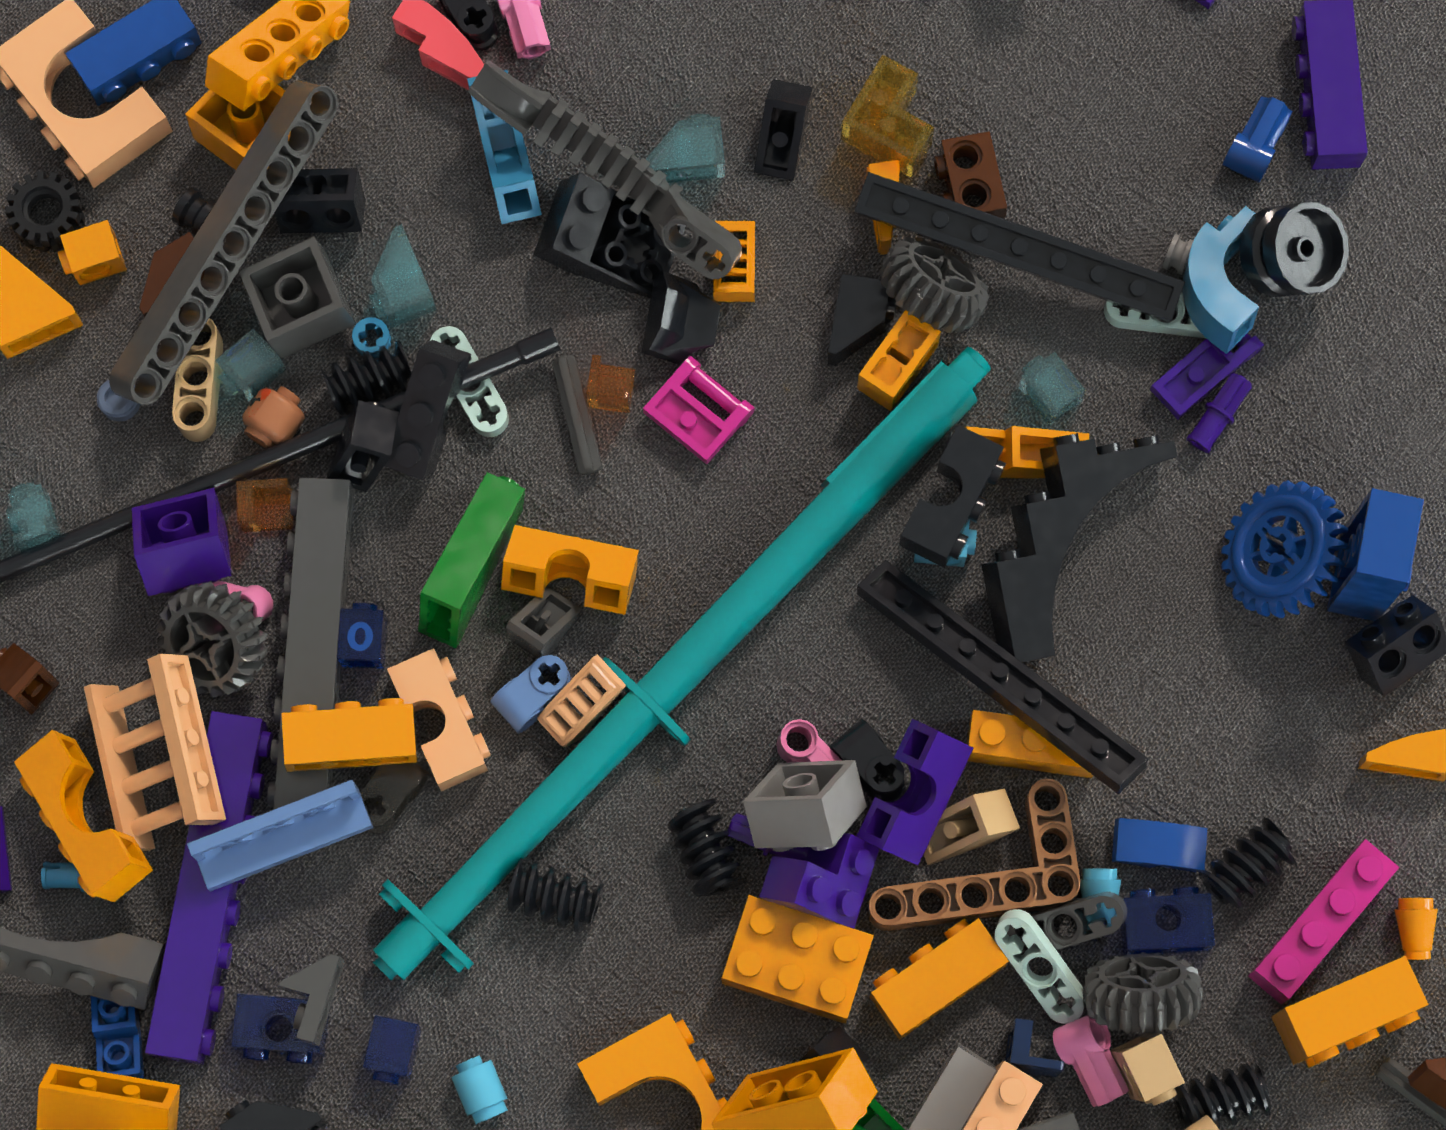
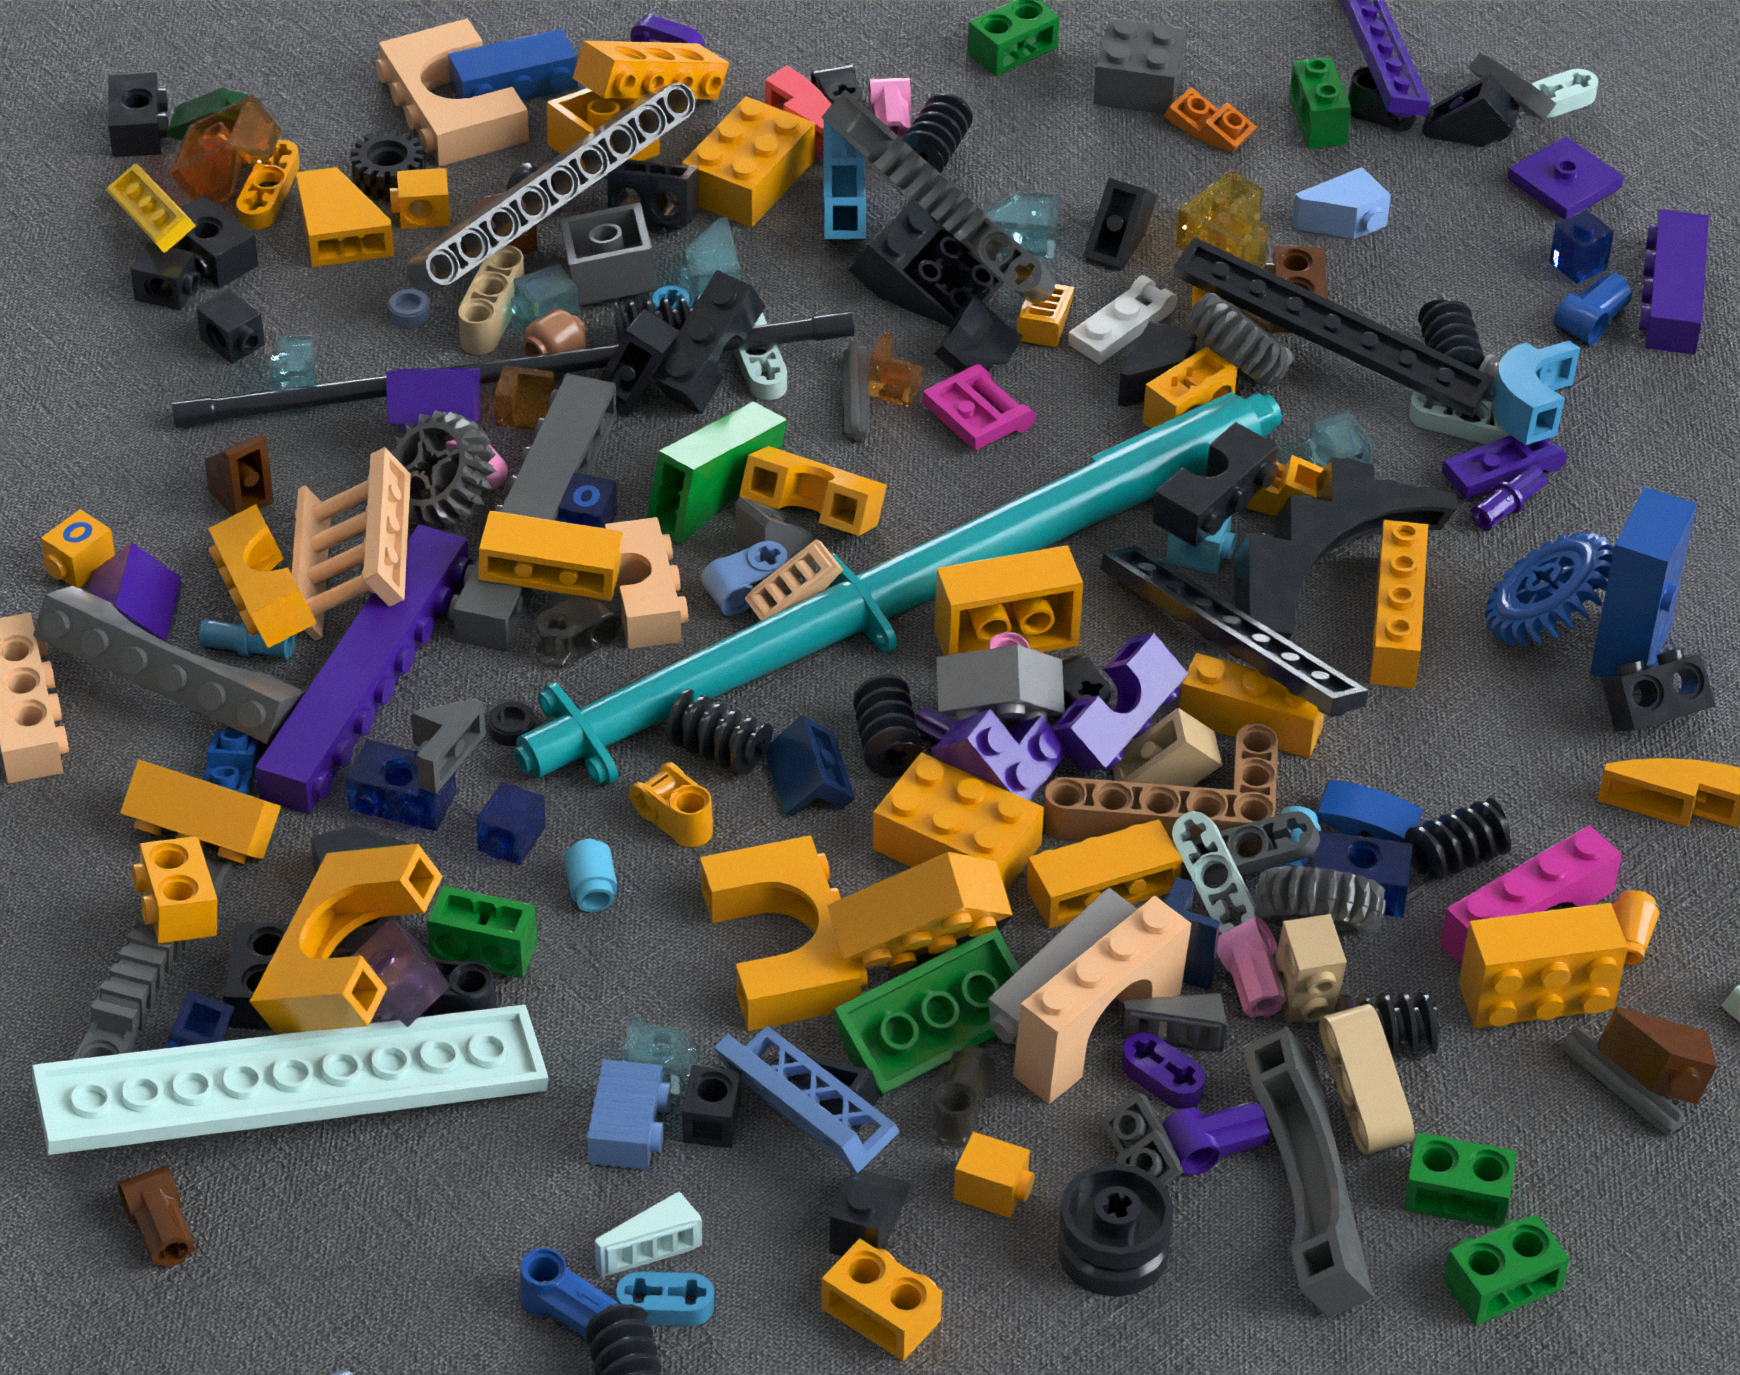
camera: 10 degrees right, 30 degrees down
(281, 835) = (455, 619): medium blue fence -> none
(359, 915) = (510, 721): none -> black tile
(401, 127) = (751, 160): none -> light orange brick
(528, 982) = (675, 805): none -> light orange piece
(573, 46) = (939, 129): none -> black piece
(645, 911) = (808, 766): none -> dark blue panel
(786, 684) = (1017, 593): none -> light orange brick
(809, 256) = (1122, 320): none -> white plate
(996, 53) = (1343, 206): none -> light blue slope
(1130, 223) = (1451, 330): none -> black piece
(1143, 582) = (1399, 604): none -> light orange brick
(1233, 59) = (1581, 246): none -> clear blue brick
(1294, 249) = (1611, 374): black wheel -> none

